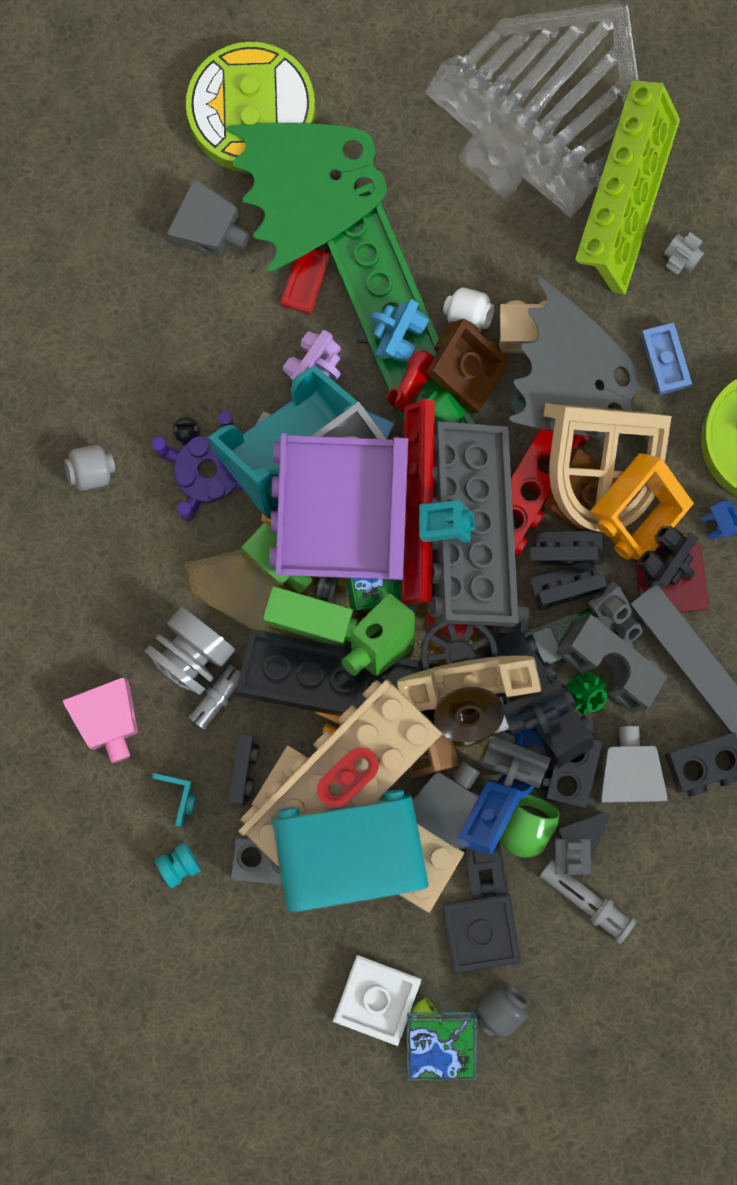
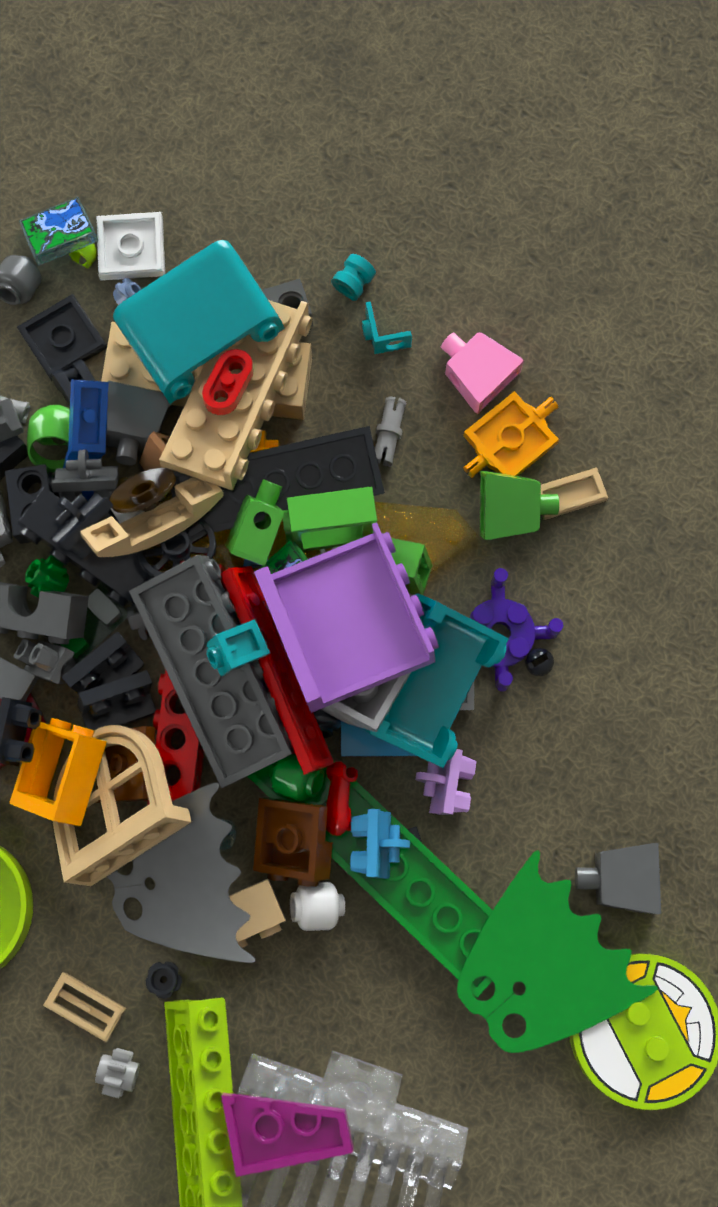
camera: 155 degrees right, 5 degrees down
(83, 566) = (576, 491): none -> tan tile
(89, 467) = (612, 581): light grey head -> none
(109, 639) = (511, 436): none -> light orange plate
(142, 571) = (512, 505): none -> bright green torso
(189, 651) = (432, 445): light grey wheel -> none
(241, 784) = (329, 365): black plate -> none
(305, 281) = (495, 863): red tile -> none
(400, 944) = (125, 290): none -> sand blue plate
(570, 136) = (282, 1133): none -> magenta wing
(622, 303) = (154, 983): none -> black plate
(666, 358) = (94, 948): medium blue plate -> none
(682, 326) = (92, 993): none -> tan tile

